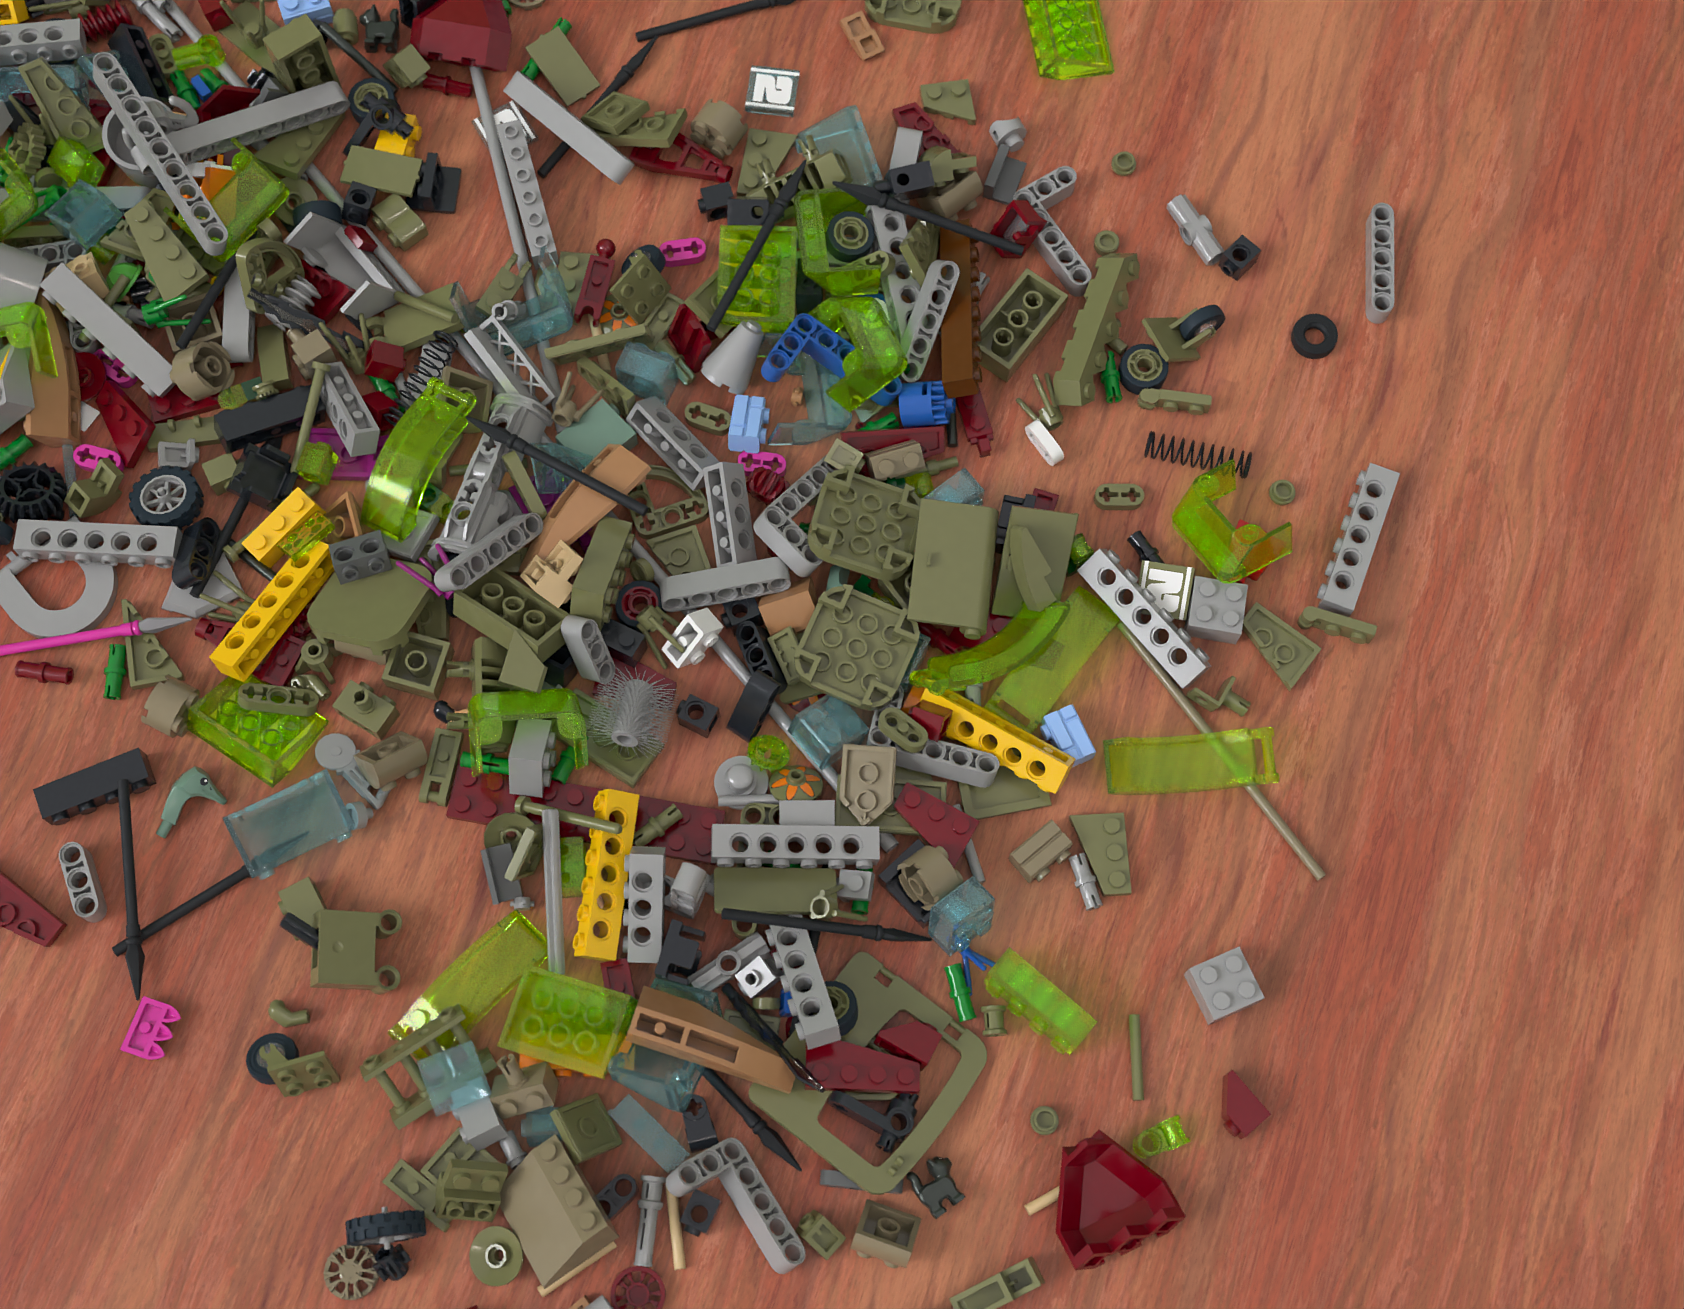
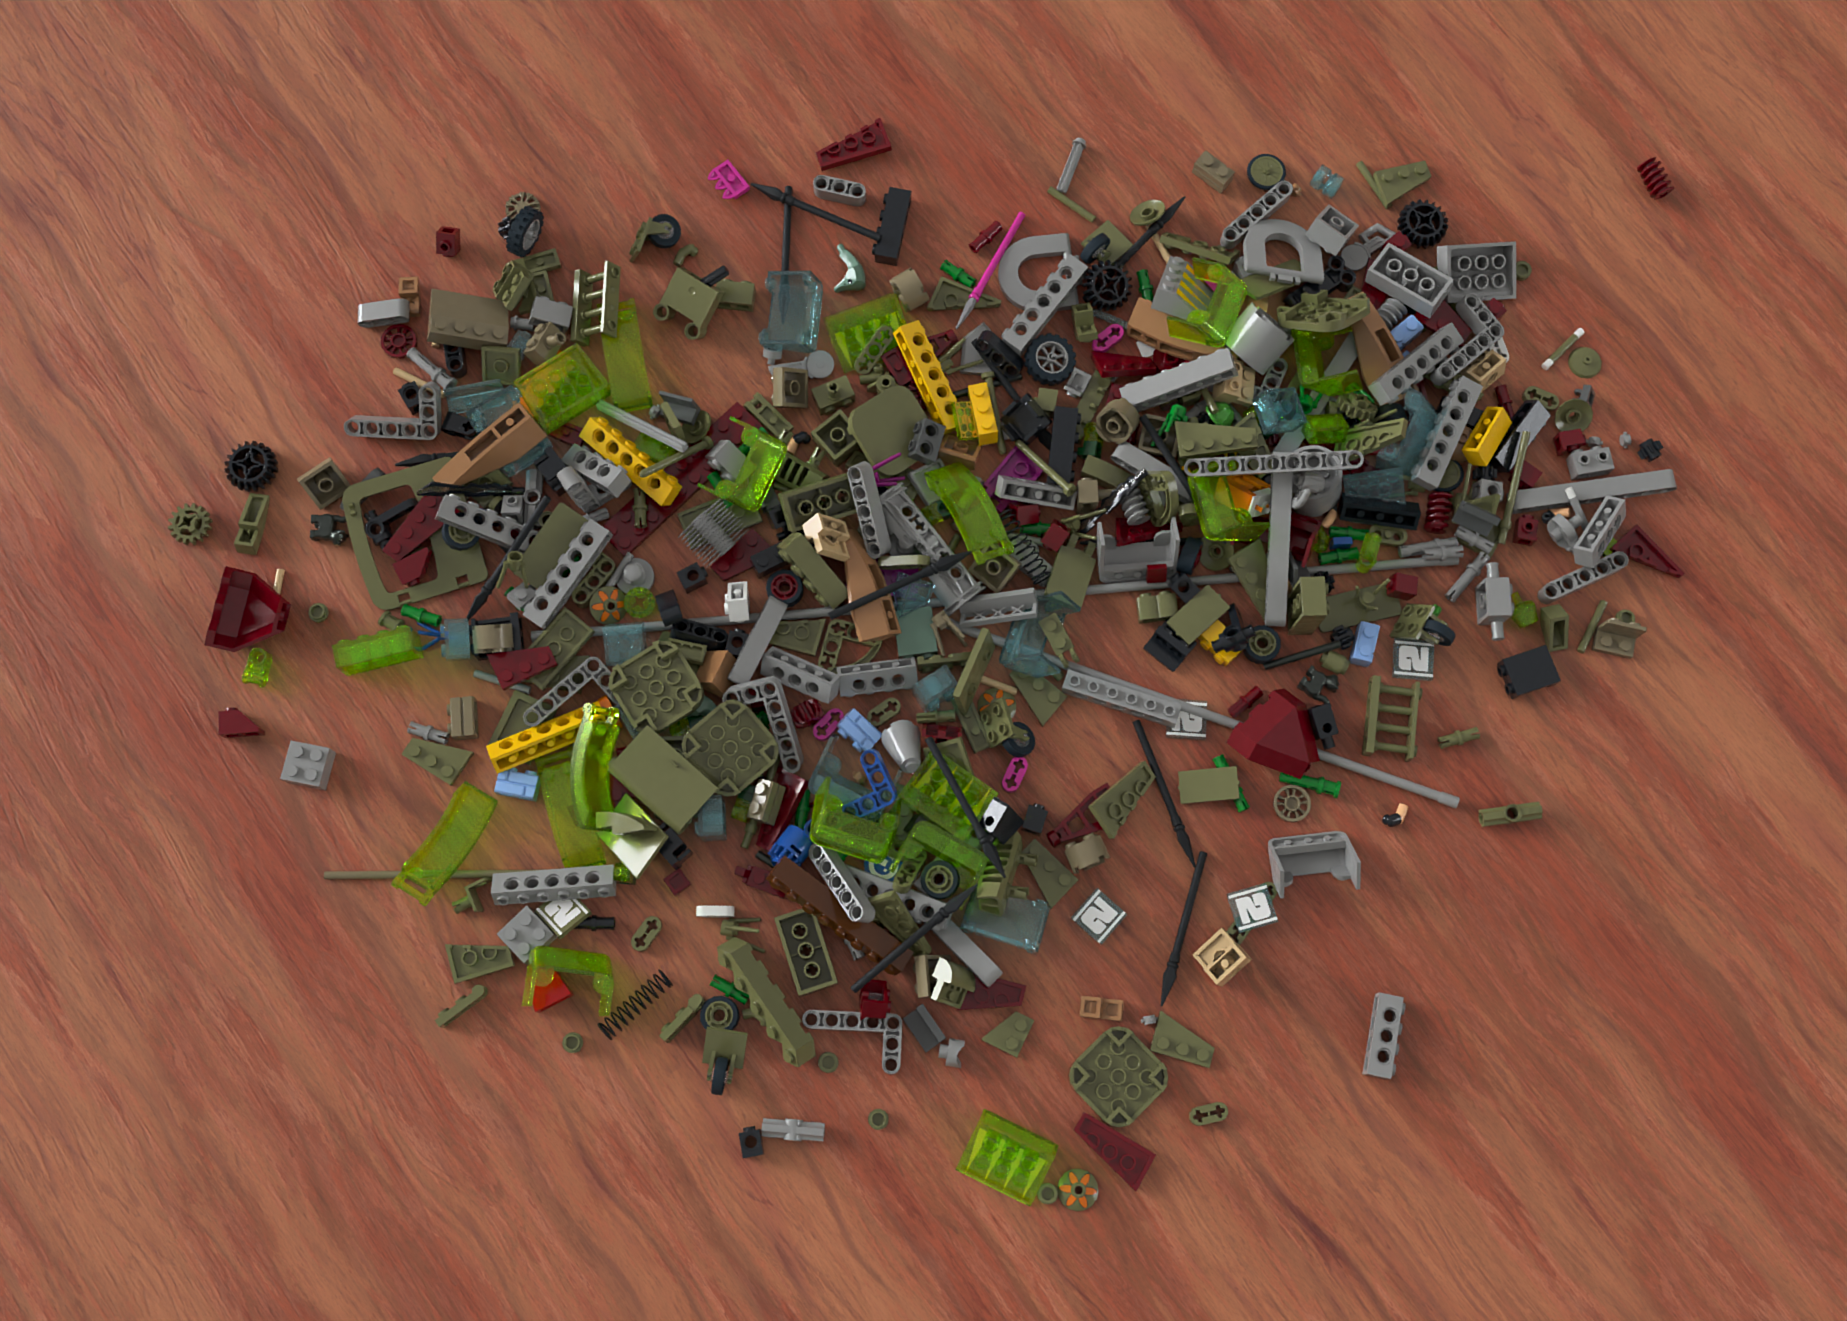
camera: 125 degrees right, 5 degrees up
(264, 389) = (1081, 451): olive bush -> none
(317, 462) = (1011, 456): clear neon green brick -> none
(407, 67) = (1269, 677): olive brick -> none
(426, 307) = (1073, 580): olive bar -> none
(453, 1078) = (575, 310): clear light blue plate -> none
(485, 1258) = (472, 281): olive dish -> none
(508, 310) = (1035, 628): light grey pin -> none
(522, 667) = (779, 480): olive slope -> none
(569, 127) = (1153, 754): light grey beam -> none
(587, 648) = (770, 532): light grey beam -> none
(596, 282) = (1025, 701): dark red plate -> none
(615, 113) = (1145, 794): olive tile -> none
(642, 570) = (807, 604): olive tile -> none
(651, 620) = (764, 583): olive plant -> none
(807, 812) = (581, 594): light grey tile -> none
(820, 1233) = (354, 450): olive bracket -> none
(844, 454) = (786, 769): olive bracket -> none
(867, 780) = (573, 640): dark tan tile -> none
(903, 731) = (585, 679): olive plate -> none
(915, 181) = (949, 939): black torso -> none
(932, 718) = (579, 697): dark red brick -> none
(1136, 1057) = (312, 689): olive bar -> none
(1319, 322) = (671, 1161): black tyre -> none
(1376, 272) = (669, 1236): light grey beam -> none
(1382, 483) = (473, 1024): light grey brick -> none

